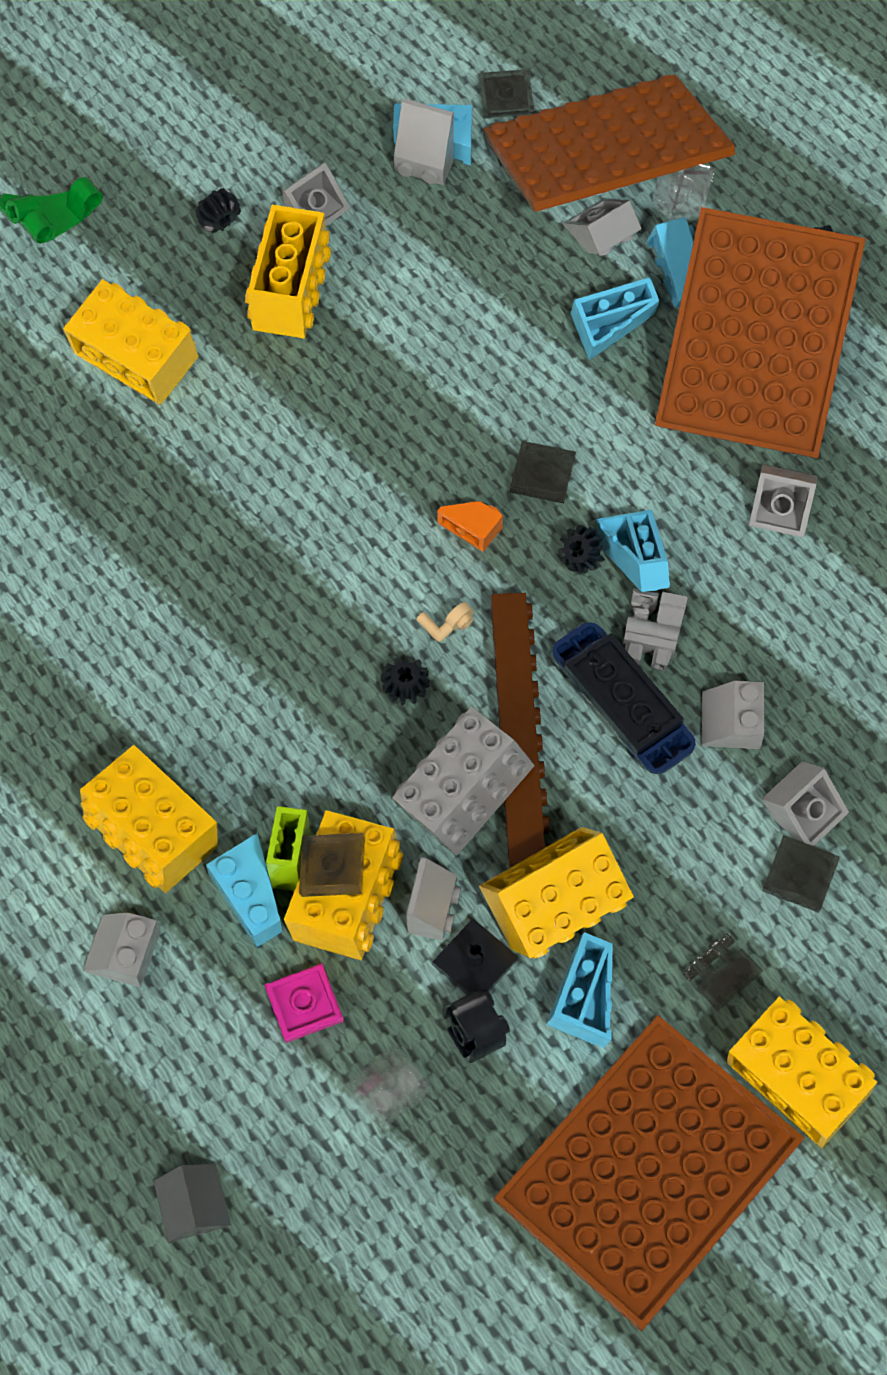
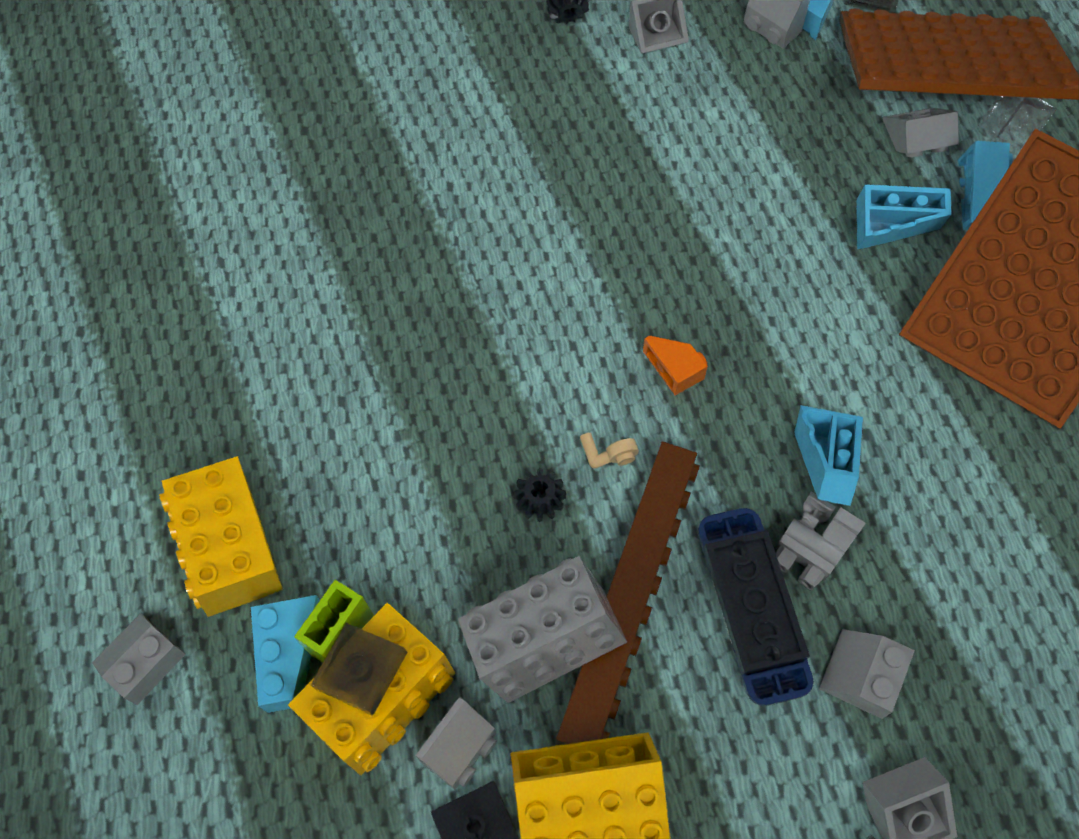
camera: 25 degrees right, 0 degrees up
(131, 341) = (436, 85): yellow brick -> none
(288, 272) = (603, 70): yellow brick -> none
(304, 1003) = (280, 798): dark pink plate -> none
(542, 472) = (766, 339): clear smoke plate -> none
(586, 540) = (774, 430): black gear -> none
(783, 500) = (1007, 459): light grey slope -> none

